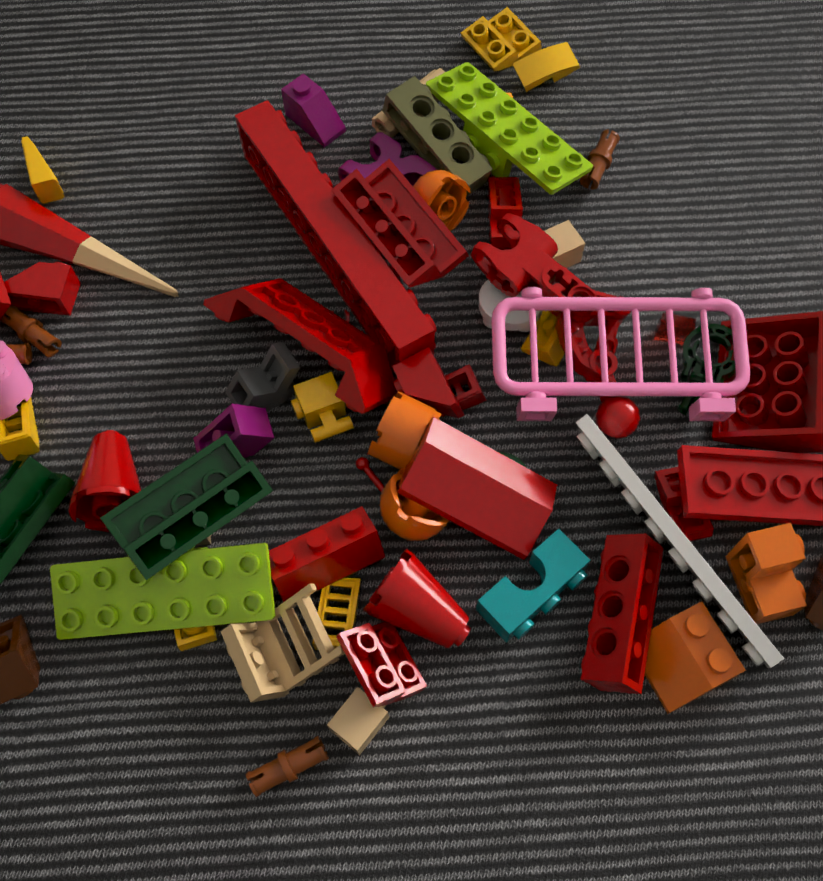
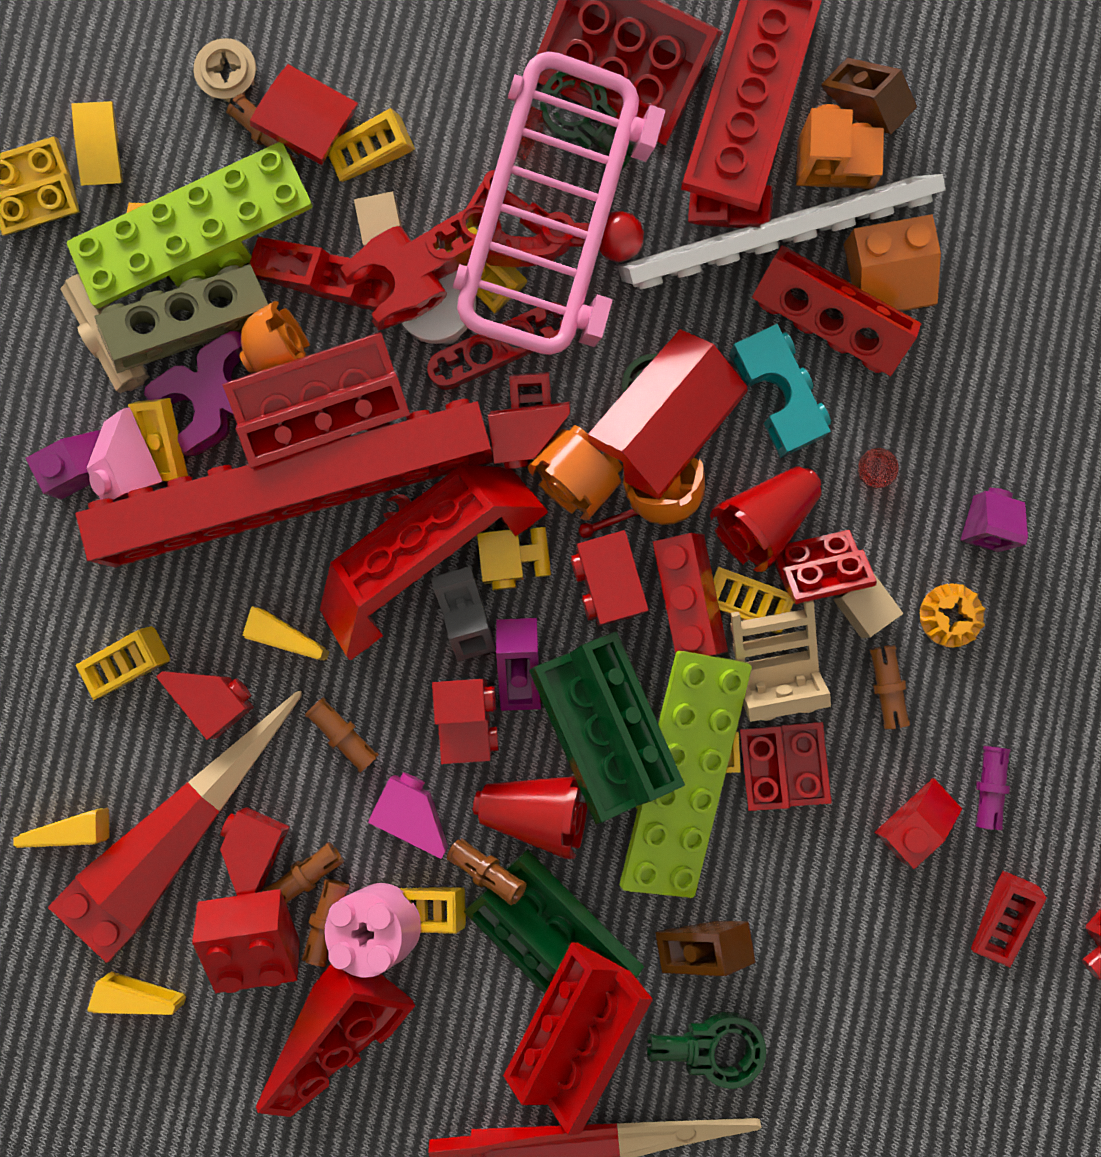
camera: 70 degrees left, 20 degrees up
(51, 456) = (486, 871): none -> dark orange pin
(90, 391) = (410, 814): none -> dark pink slope
(147, 327) = (341, 734): none -> dark orange pin
(155, 231) = (208, 700): none -> red slope
(159, 833) = (920, 824): none -> red slope
(176, 179) = (145, 650): none -> yellow slope
(178, 406) = (464, 720): none -> red brick
(192, 689) = (785, 766): none -> red slope
(218, 260) = (272, 631): none -> yellow slope
(320, 129) = (121, 459): none -> bright pink slope
(320, 480) = (609, 578): none -> red brick
(348, 146) = (160, 434): none -> yellow plate
(387, 826) = (937, 624): none -> light orange gear
(477, 822) = (996, 521): none -> magenta slope
(479, 332) = (502, 352): none -> red beam
(493, 698) = (878, 468): none -> clear red plate
(621, 175) = (303, 114): none -> red slope
(628, 245) = (376, 126): none -> yellow slope
(637, 118) = (211, 60): none -> tan gear

